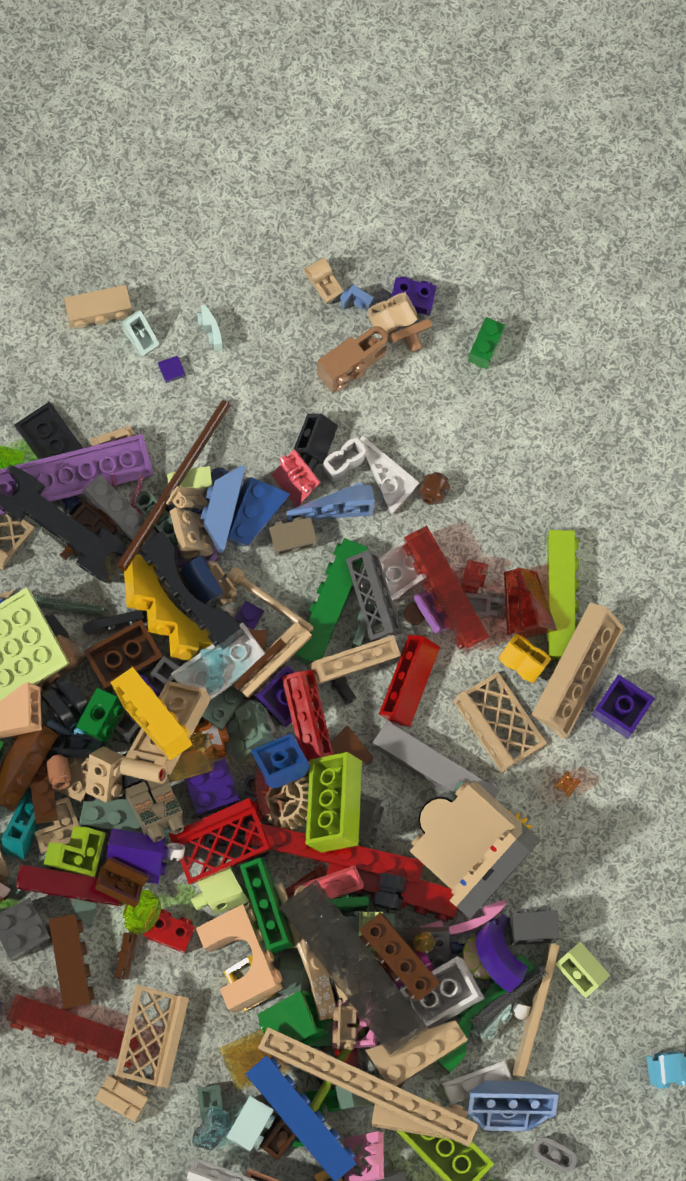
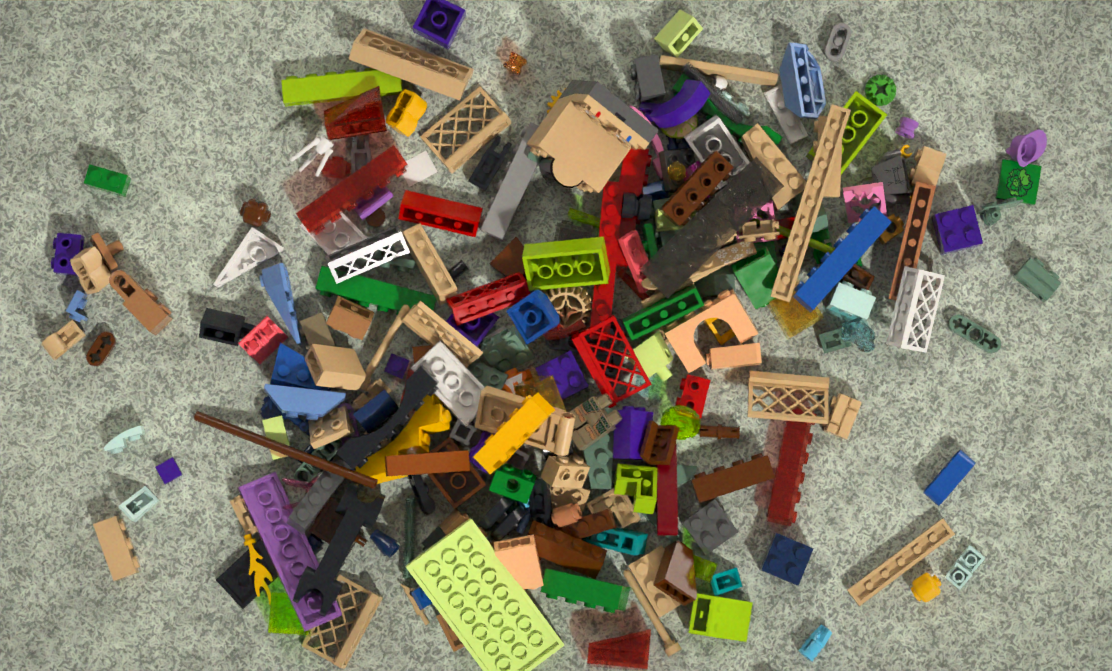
camera: 95 degrees left, 10 degrees up
(50, 447) = (260, 570): none -> yellow piece
(59, 578) = (385, 543): none -> dark blue cone
(135, 625) = (427, 463): none -> dark orange slope
(176, 851) = (624, 399): white hinge -> none
(183, 889) = (653, 390): none -> clear light blue tile
(187, 497) = (298, 434): tan hinge -> none
(207, 982) = (734, 356): none -> light nougat slope
(215, 668) = (466, 385): clear light blue leg -> none
(254, 545) = (335, 367): none -> tan brick
(259, 664) = (448, 347): reddish brown bar -> none
(306, 320) = (97, 346): none -> reddish brown beam
(307, 570) = (350, 318): none -> medium nougat brick
(349, 457) = (242, 300): white brick -> none
(387, 834) = (584, 217): none -> clear neon green tile
(405, 918) = (657, 190): none -> blue bracket
(457, 741) = (489, 165): none -> black hinge
(462, 666) = (419, 168): none -> white sticker
(497, 563) = (322, 146): none -> white plant

